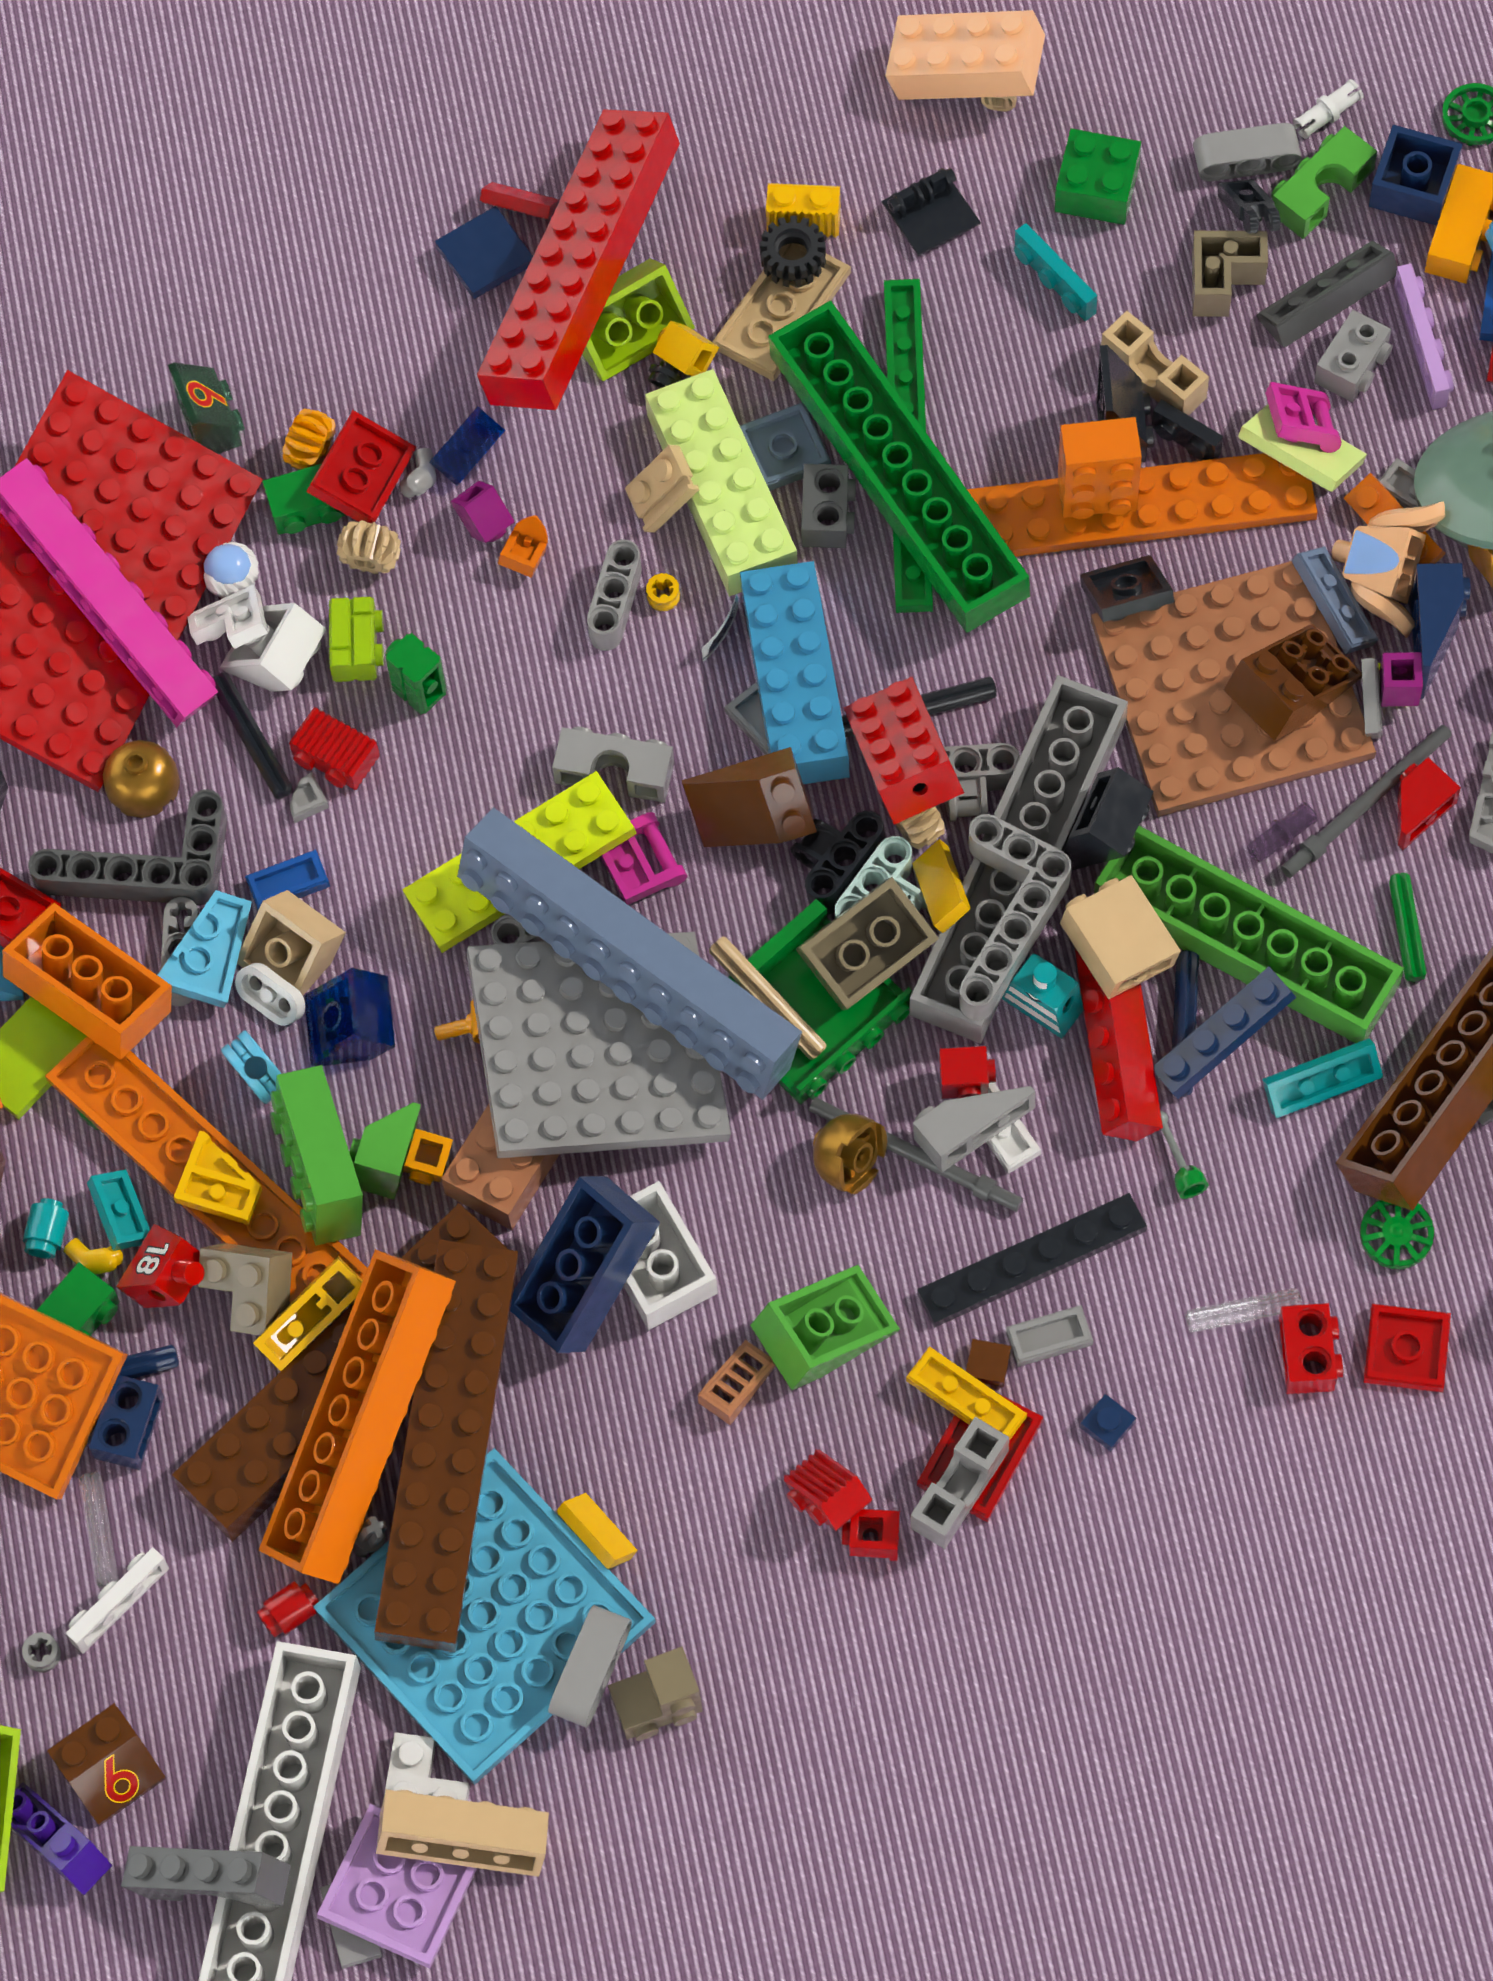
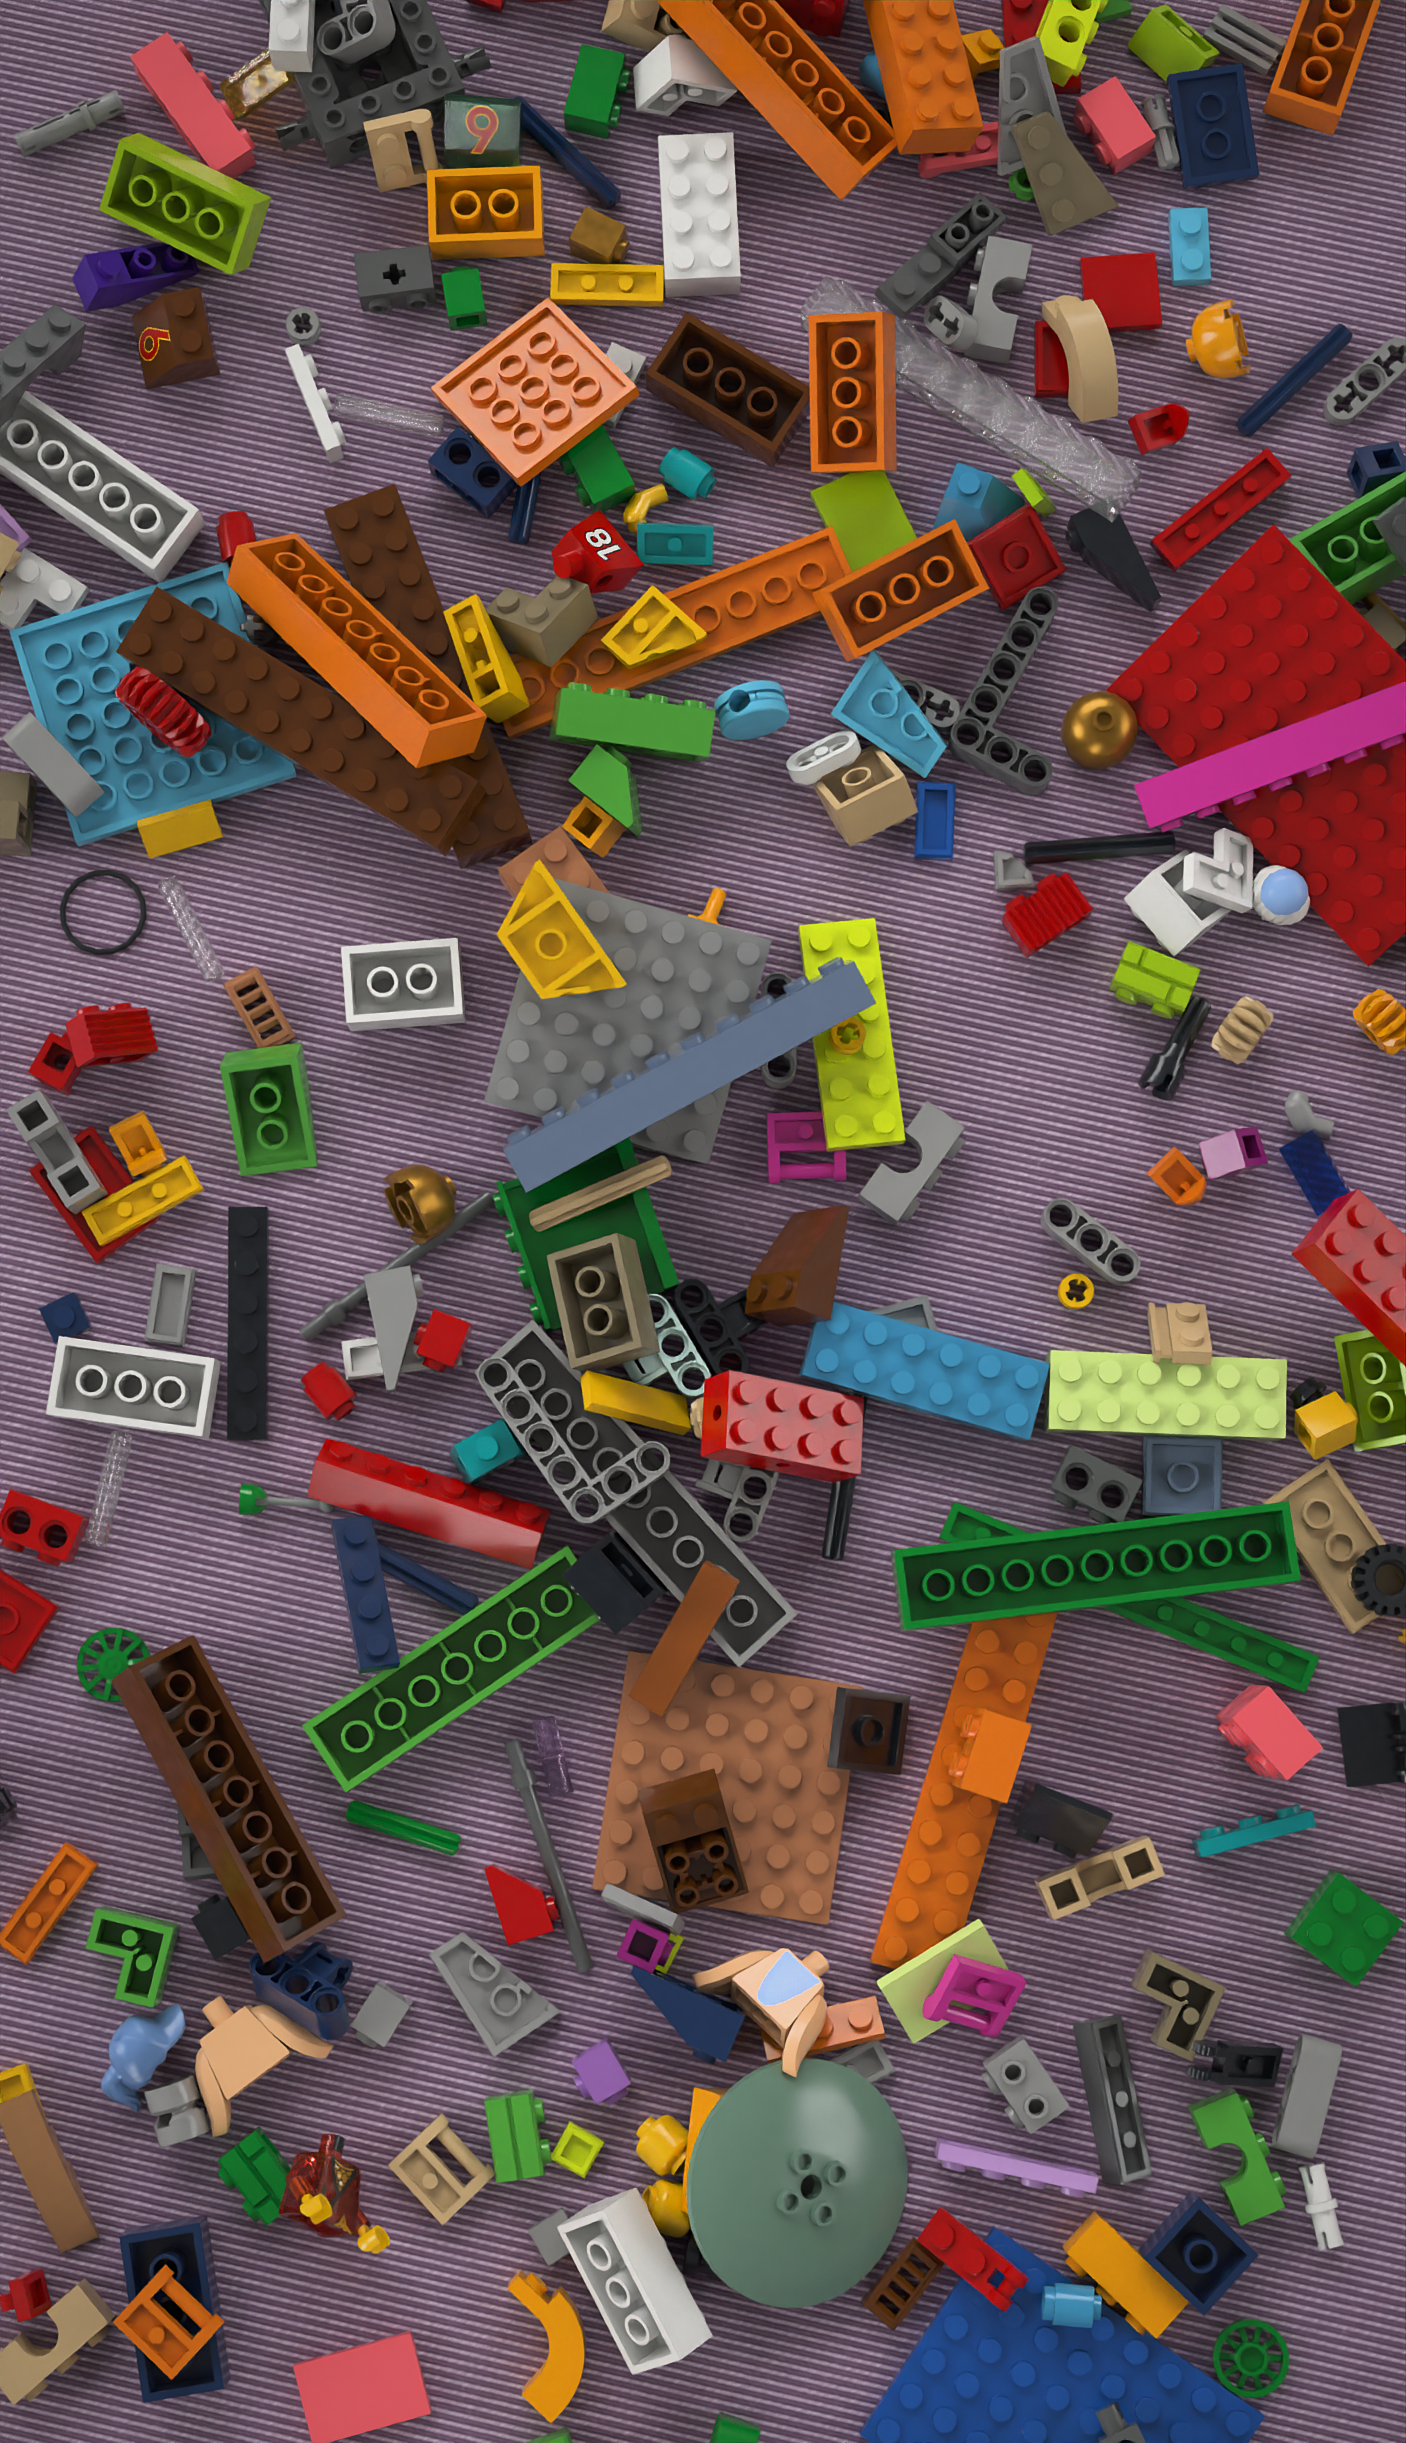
camera: 110 degrees right, 15 degrees up
(294, 507) = (1326, 996): green brick -> none
(349, 1018) = (764, 817): clear blue slope -> none
(361, 468) = (1330, 1057): red tile -> none
(415, 673) = (1085, 1015): green brick -> none
(433, 596) = (1167, 1068): none -> black piece
(494, 1574) = (163, 712): none -> red gear
(558, 1114) = (554, 942): none -> yellow wing
(582, 1264) = (409, 907): dark blue brick -> none
(687, 1480) = (191, 929): none -> clear axle
(712, 1612) = (110, 950): none -> black piece
(715, 641) = (1007, 1330): sticker -> none
(916, 1425) = (138, 1144): none -> light orange bracket
(969, 280) = (1267, 1732): none -> coral brick
(988, 1362) = (171, 1238): reddish brown tile -> none
(1059, 1157) = (329, 1391): none -> red brick
(1119, 936) = (493, 1536): tan brick -> none
(1132, 753) = (684, 1638): none -> dark orange tile
(1142, 1320) = (133, 1387): none -> white brick
(1188, 432) = (999, 1883): black plate -> none
(1322, 1078) = (289, 1670): teal plate -> none
(1335, 600) = (767, 1929): sand blue tile -> none

